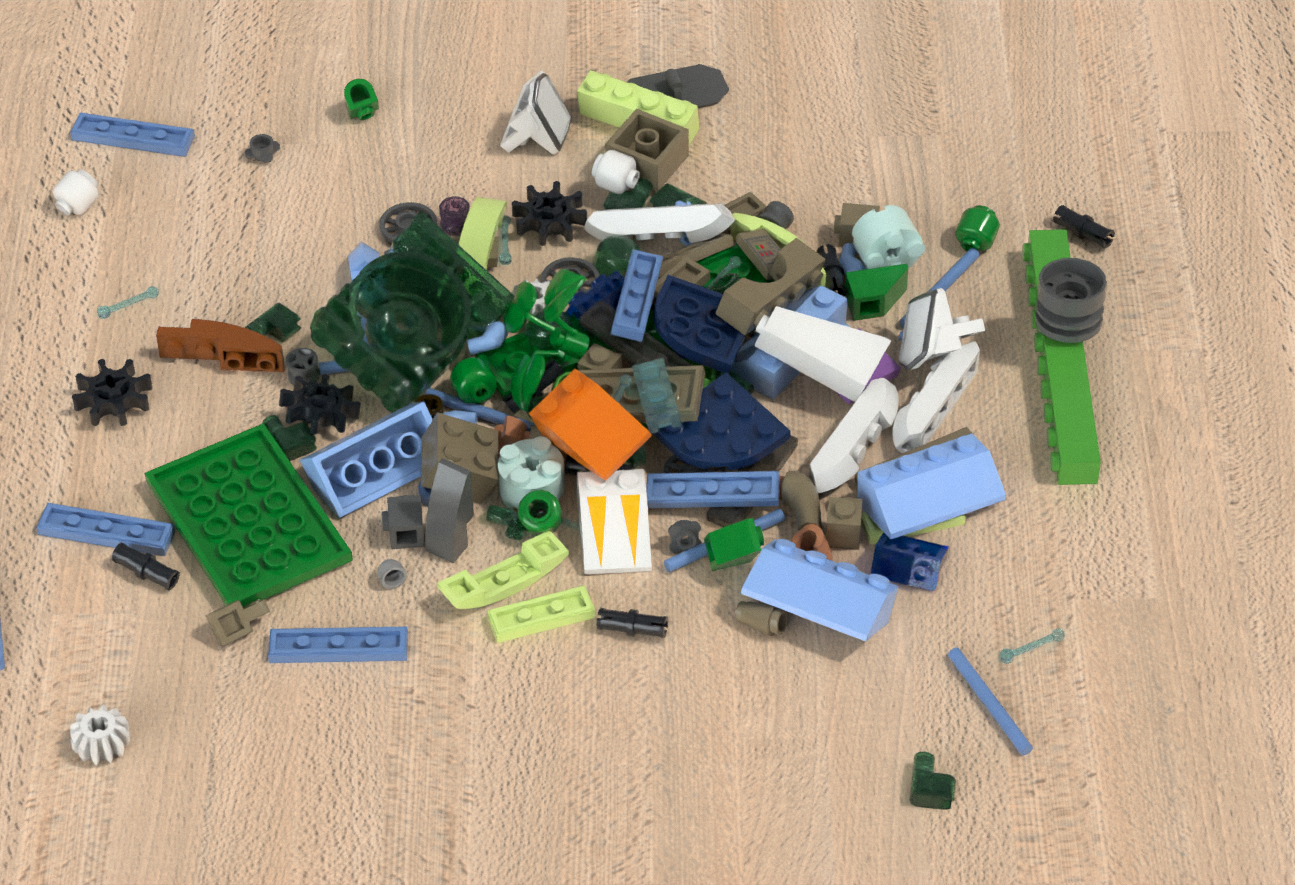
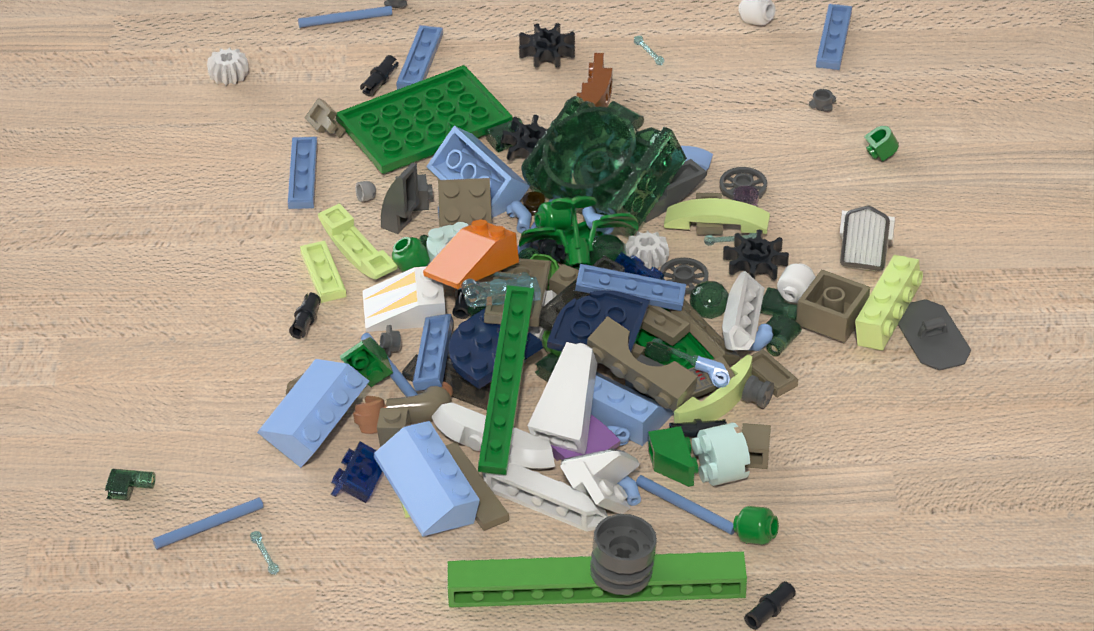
camera: 90 degrees right, 5 degrees down
(768, 236) = (715, 370): none -> light blue arm
(802, 393) = (506, 380): none -> green plate

